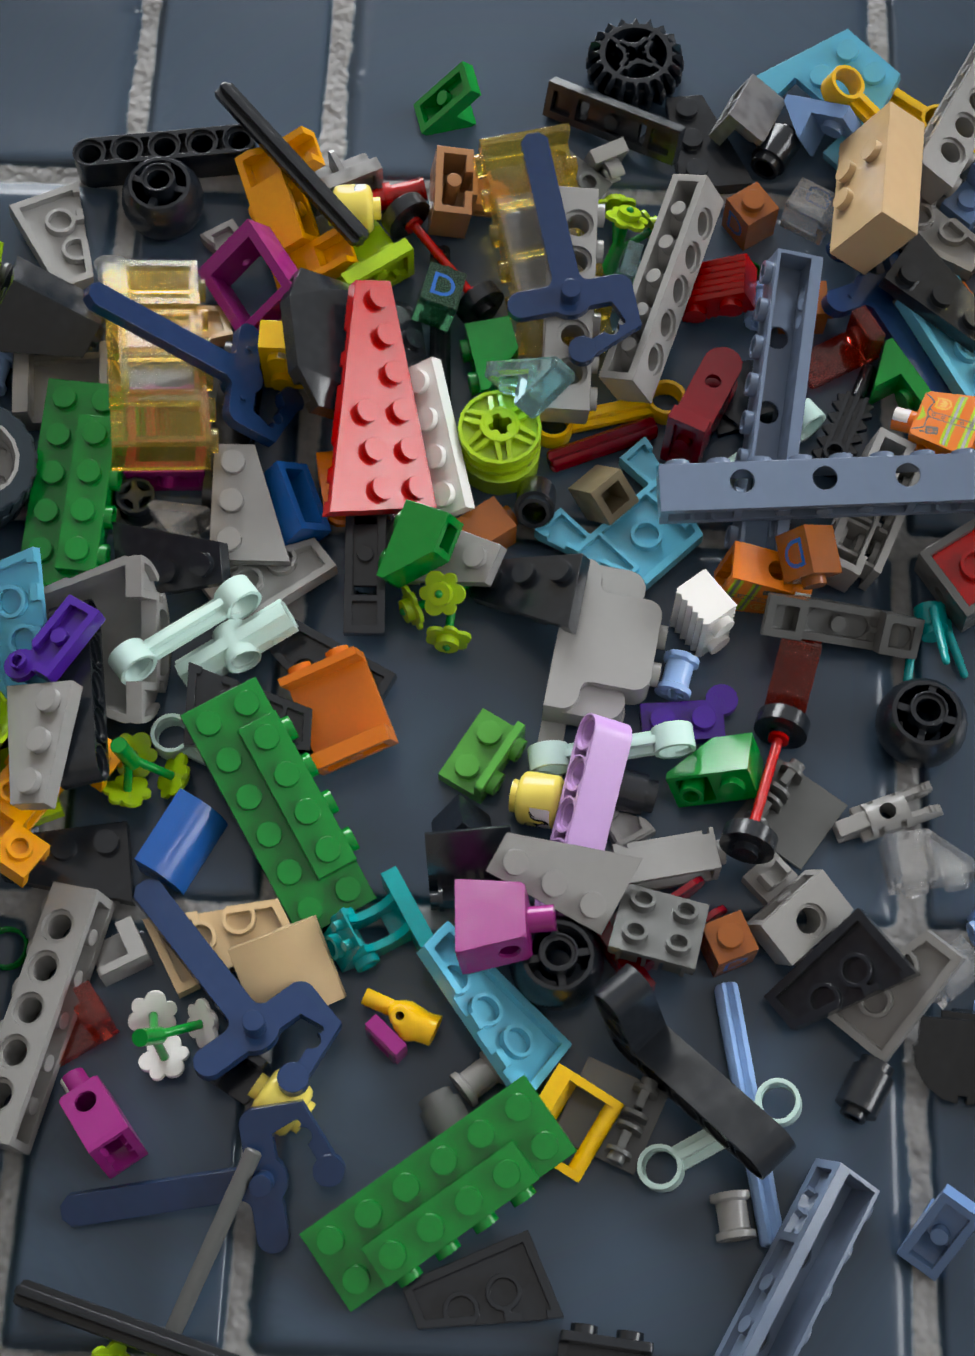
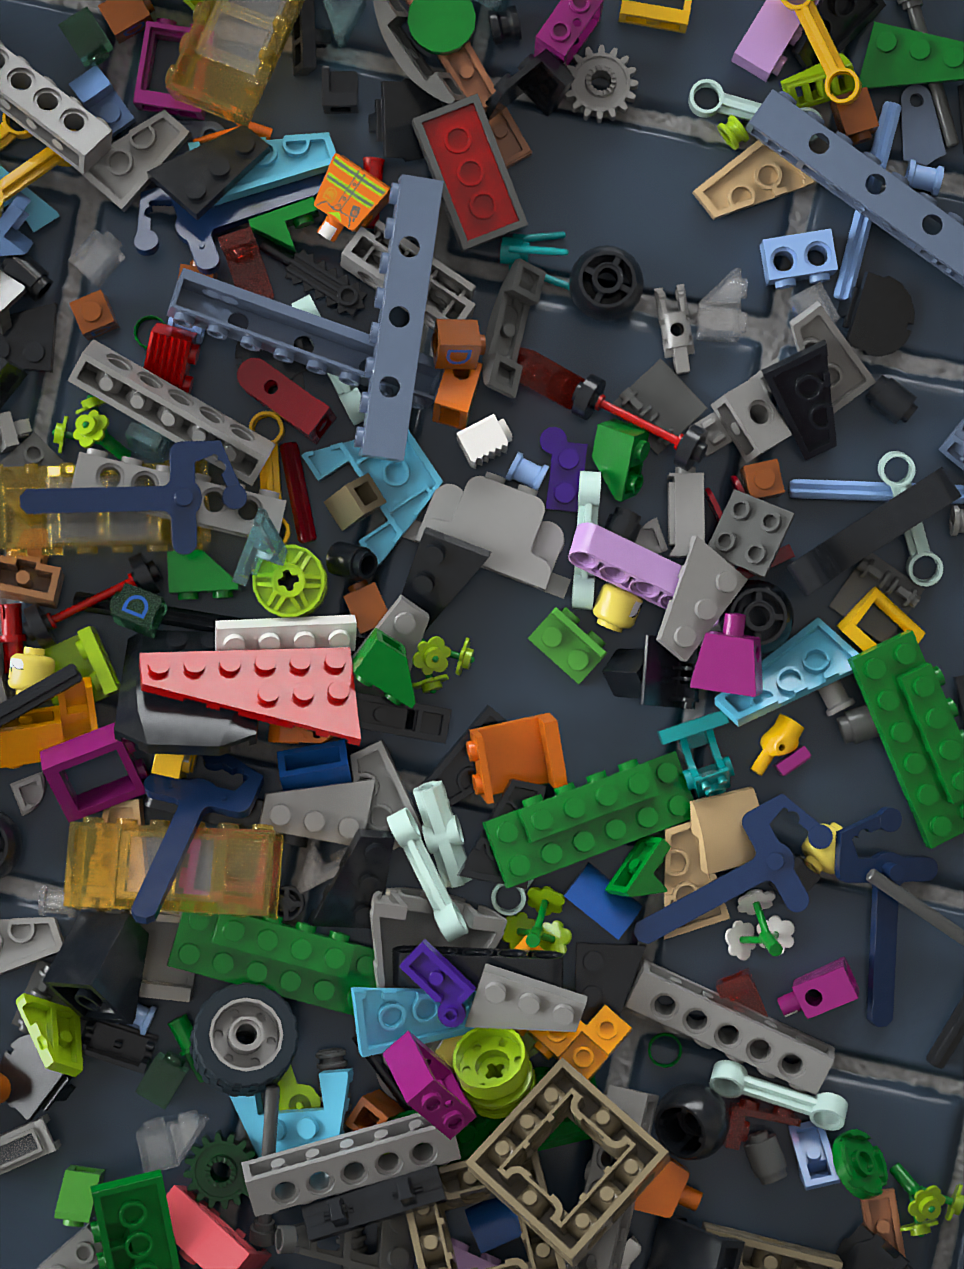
camera: 80 degrees left, 20 degrees up
(122, 953) = (687, 958): light grey panel -> none
(215, 868) = (636, 873): none -> green slope
(877, 188) = (104, 198): tan brick -> none

